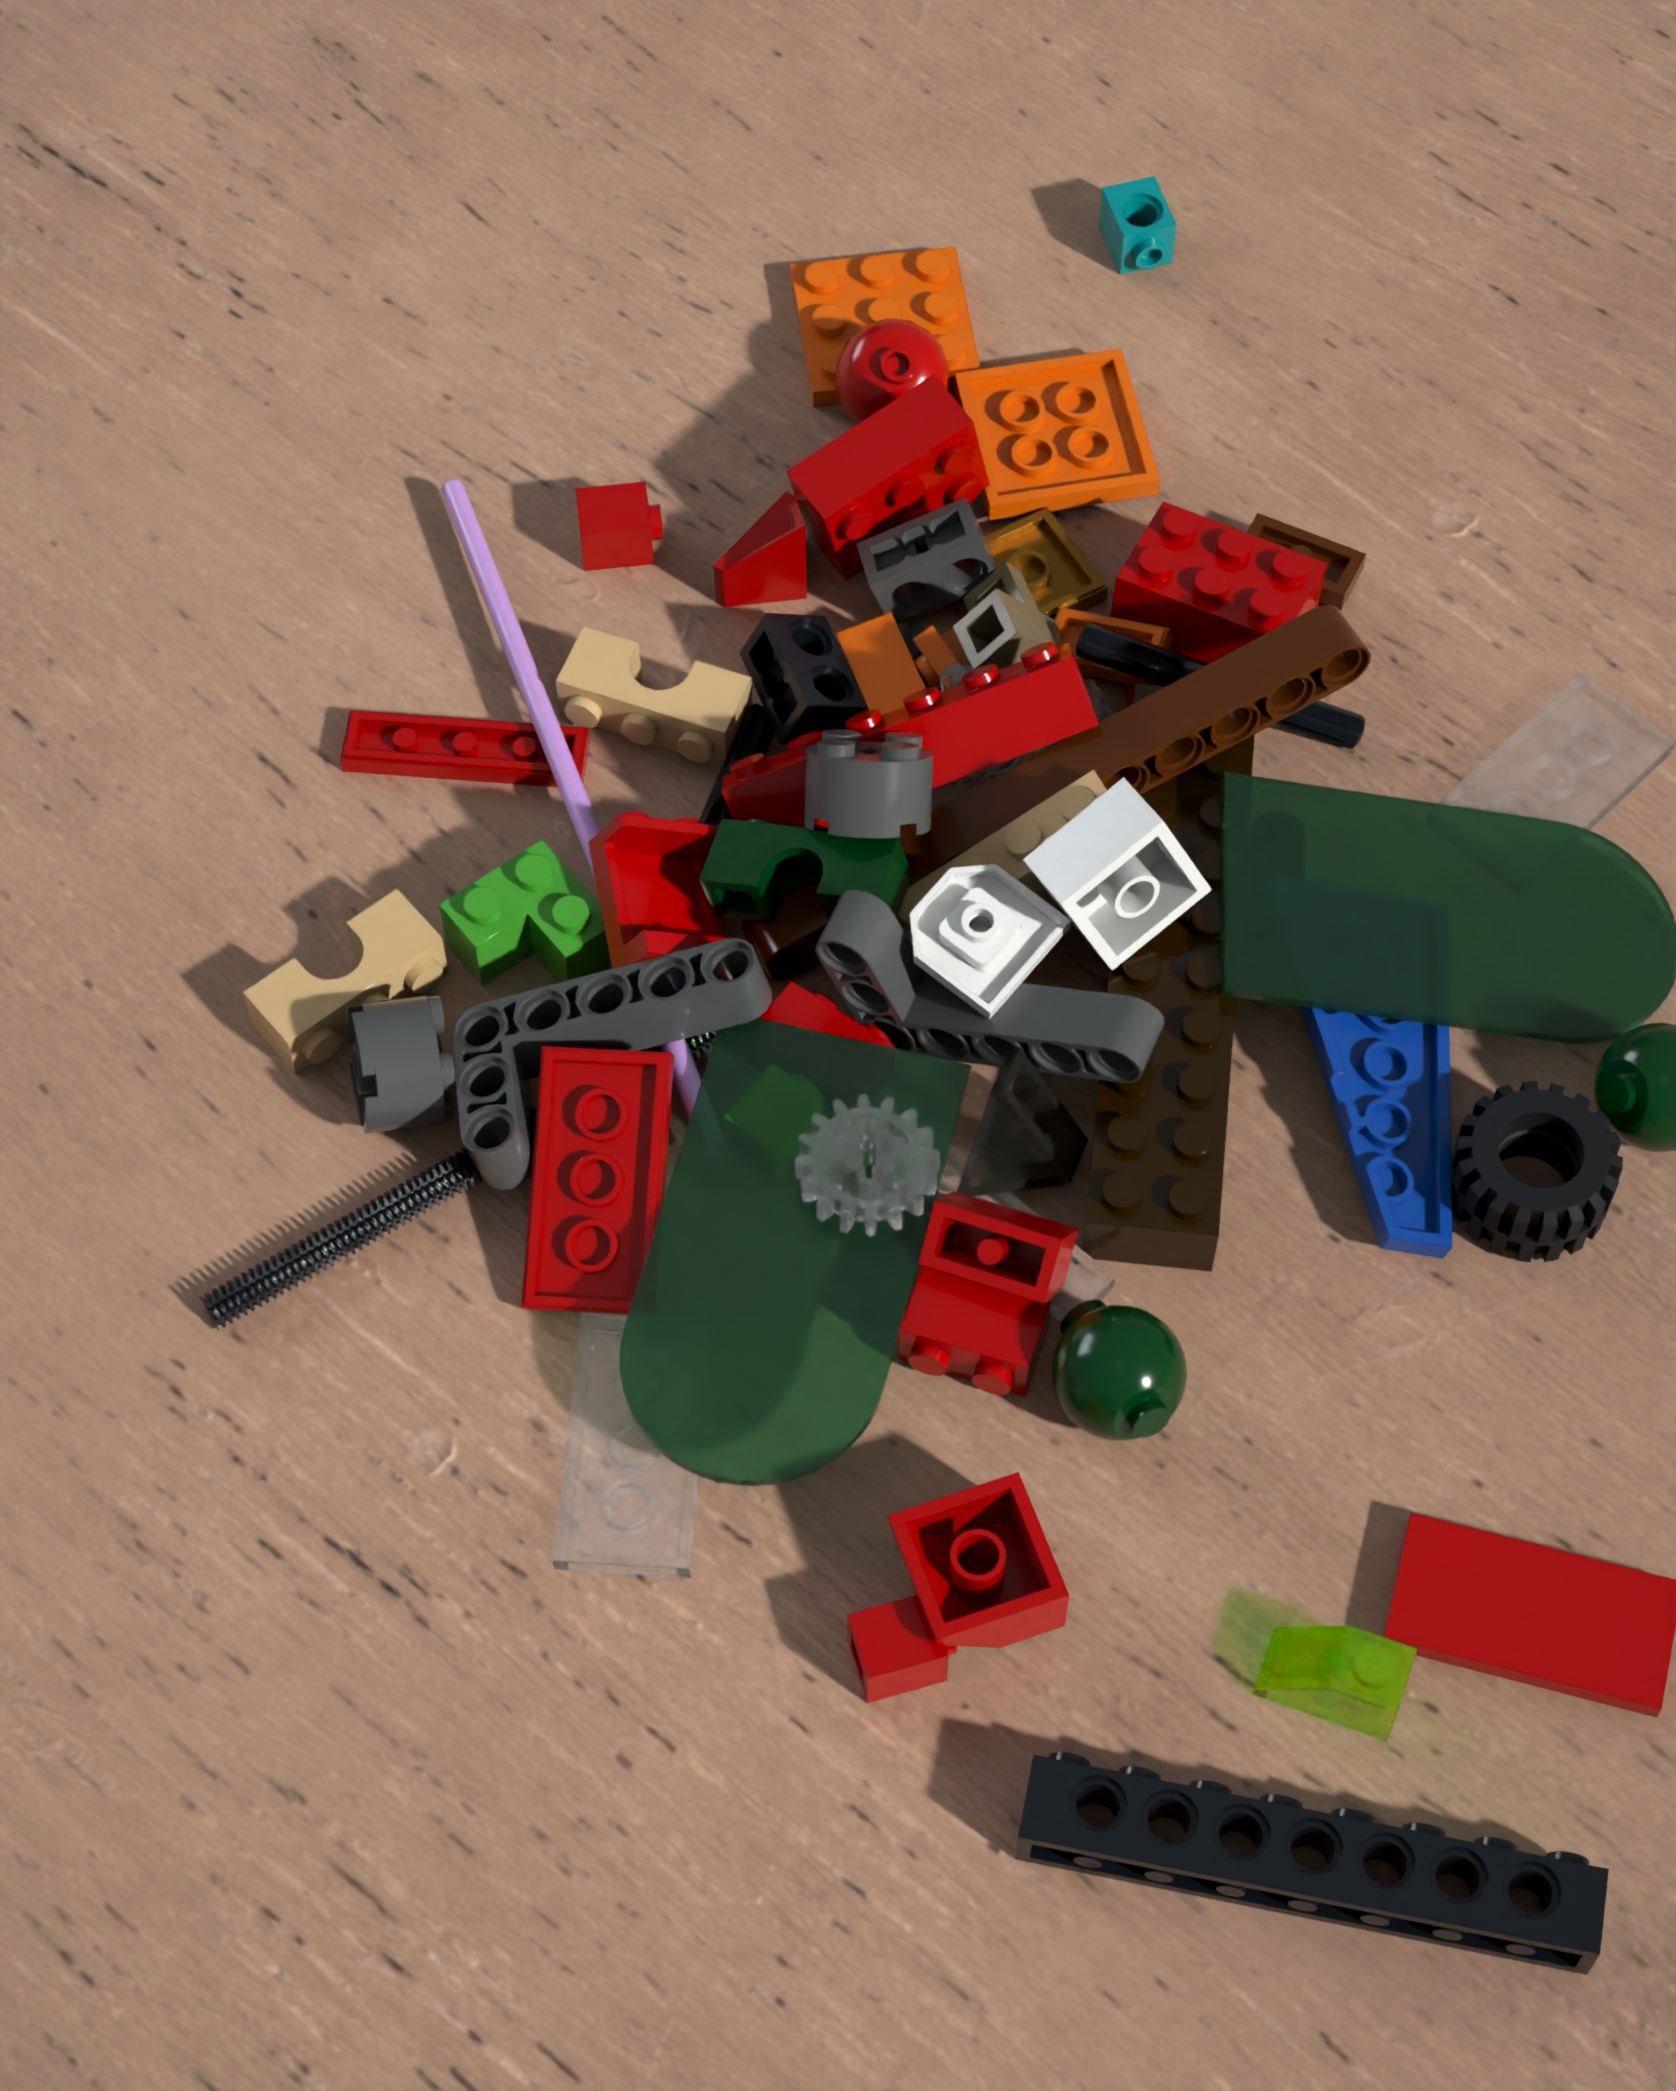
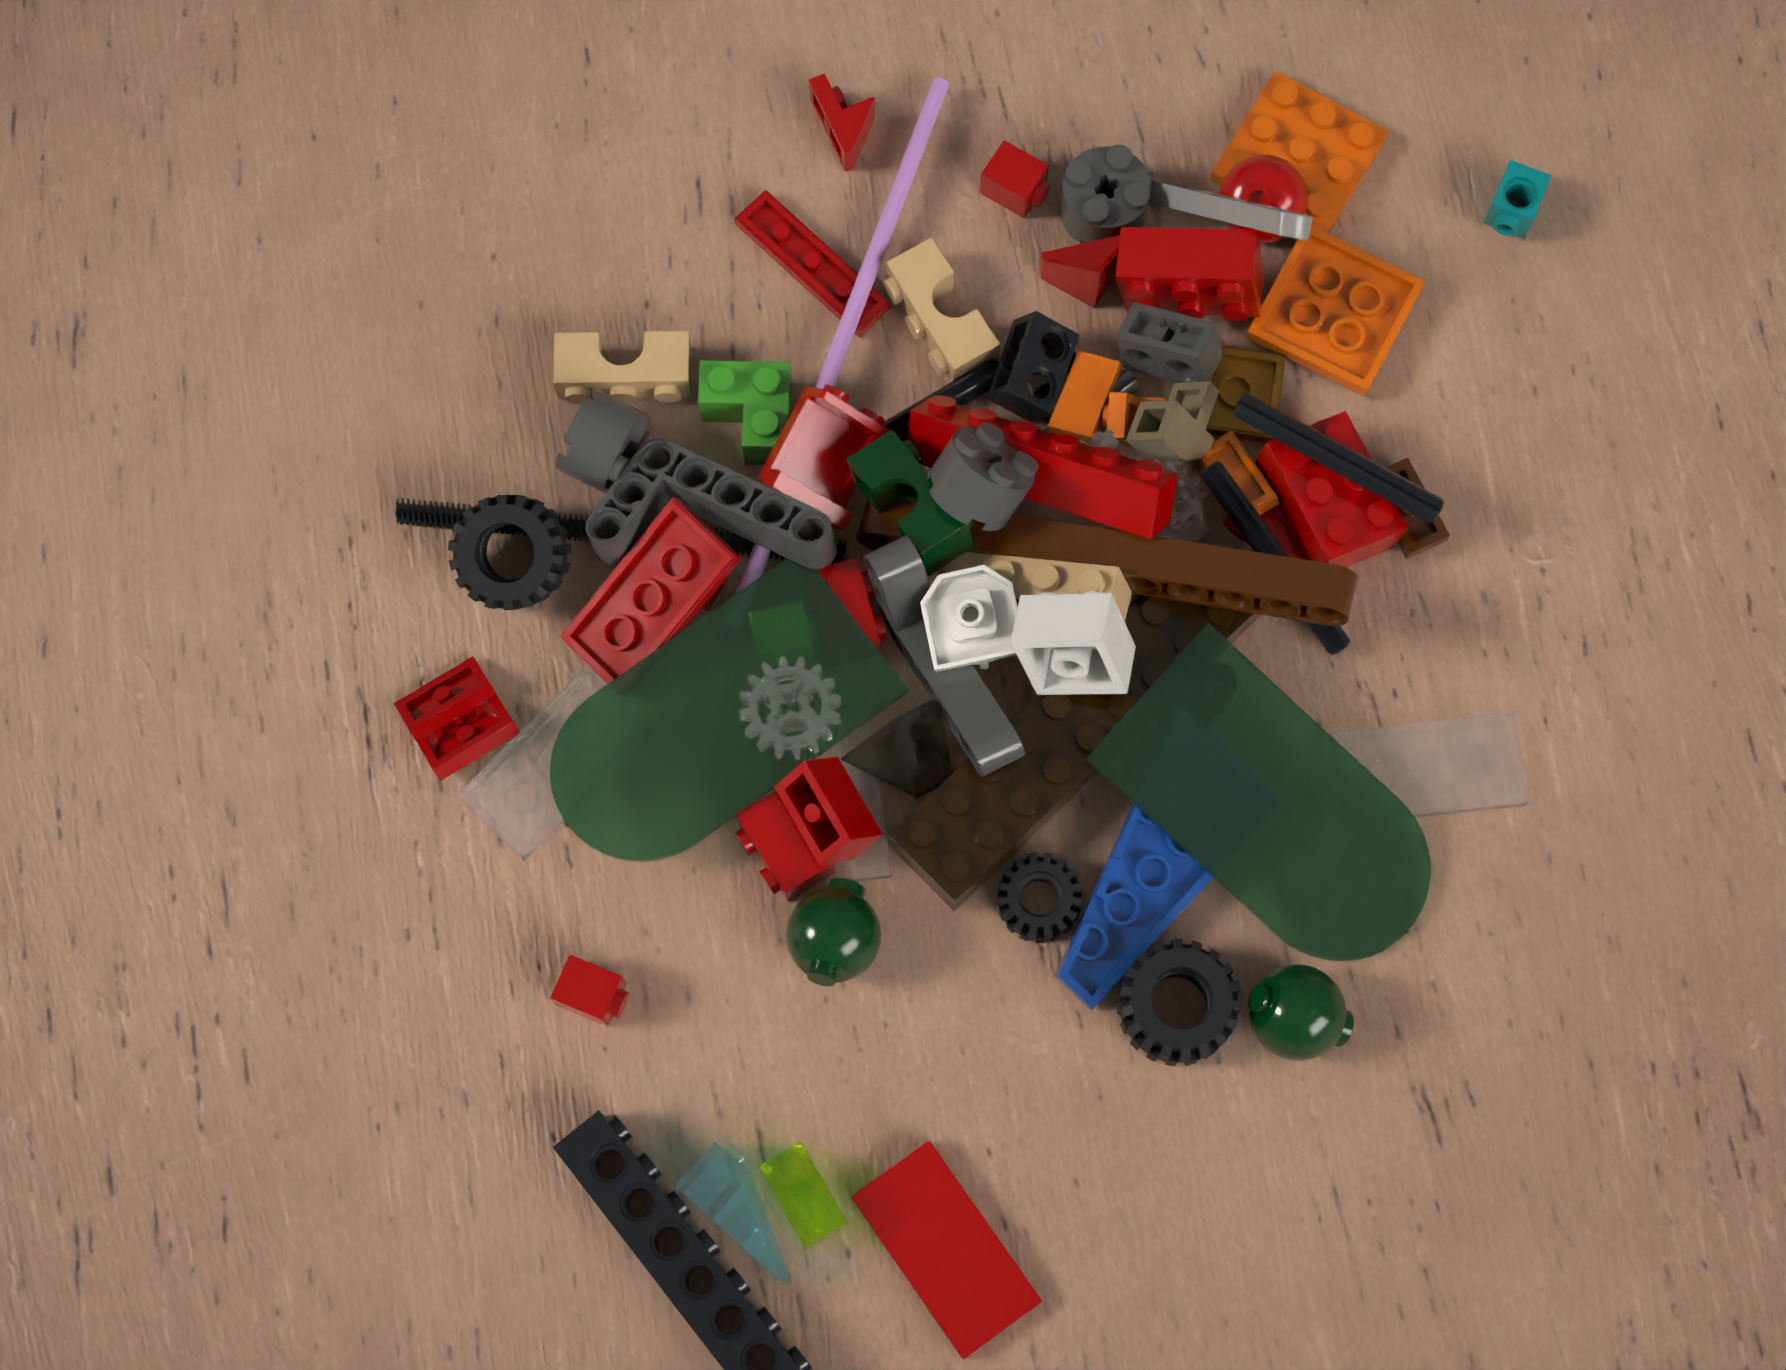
camera: 40 degrees right, 15 degrees up
(375, 595) = (844, 125): none -> red slope
(404, 1193) = (471, 552): none -> black tyre
(477, 1479) = (456, 718): none -> red slope
(725, 475) = (1103, 193): none -> dark grey brick
(880, 387) = (1231, 210): none -> light grey beam
(982, 1566) = (661, 983): red slope -> none
(1203, 536) = (1338, 457): none -> black axle
(1277, 1747) = (731, 1199): none -> clear light blue slope
(1285, 1216) = (1045, 870): none -> black tyre

